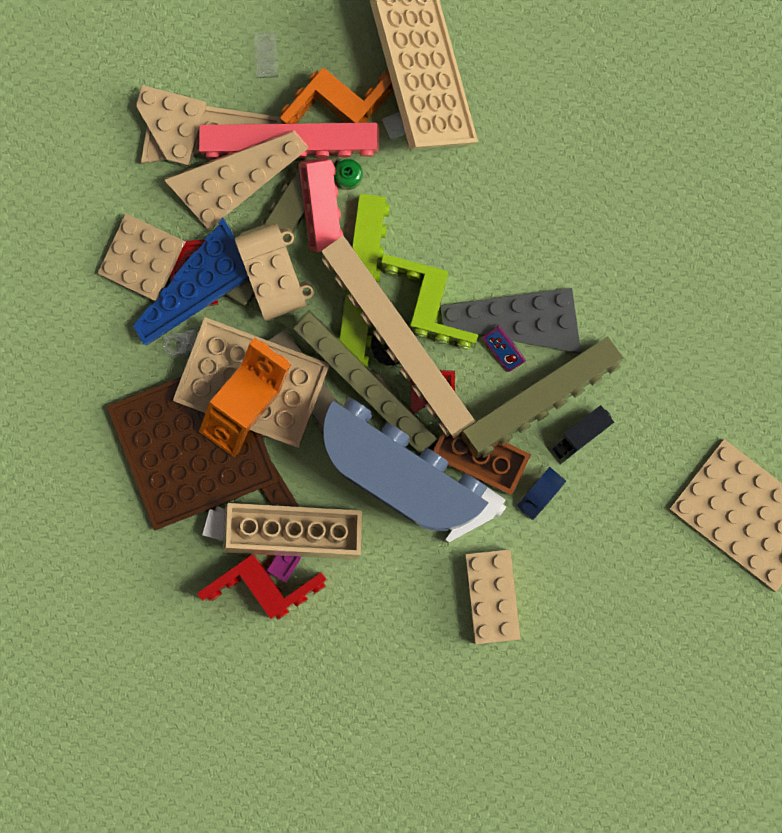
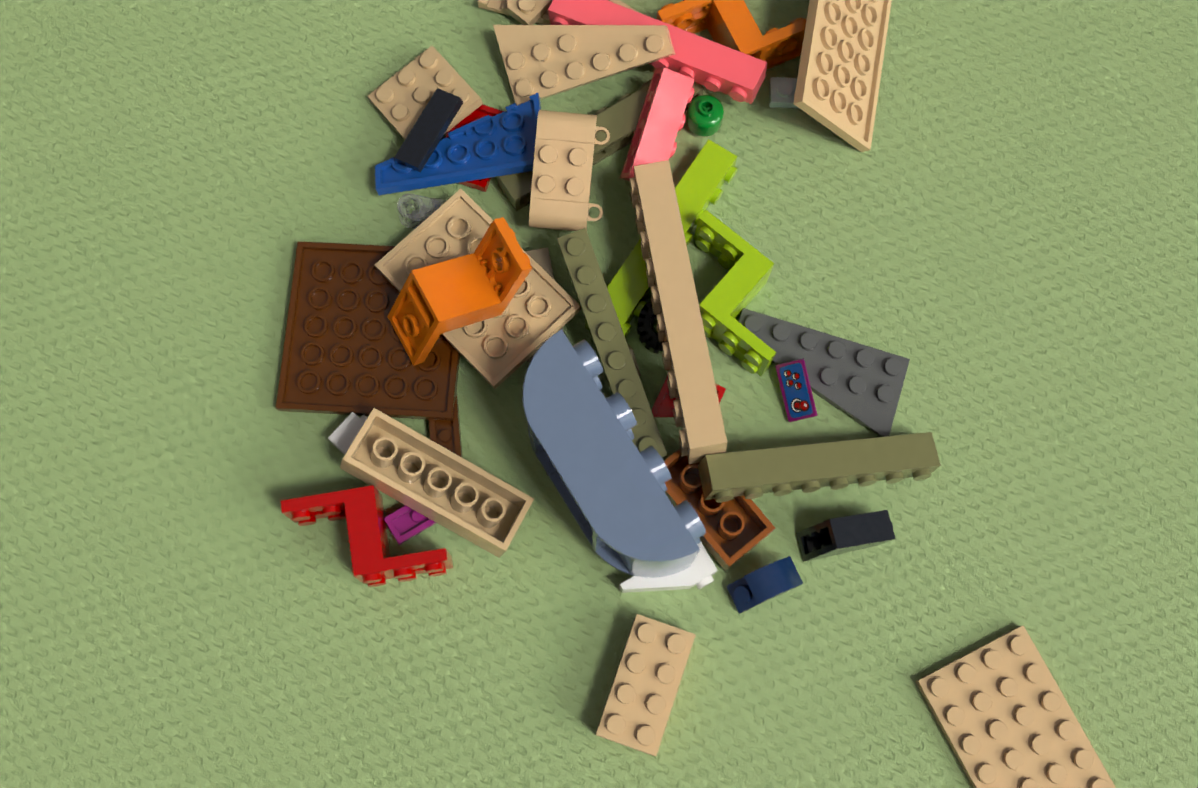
camera: 15 degrees right, 10 degrees down
(159, 283) = (428, 130): none -> black tile

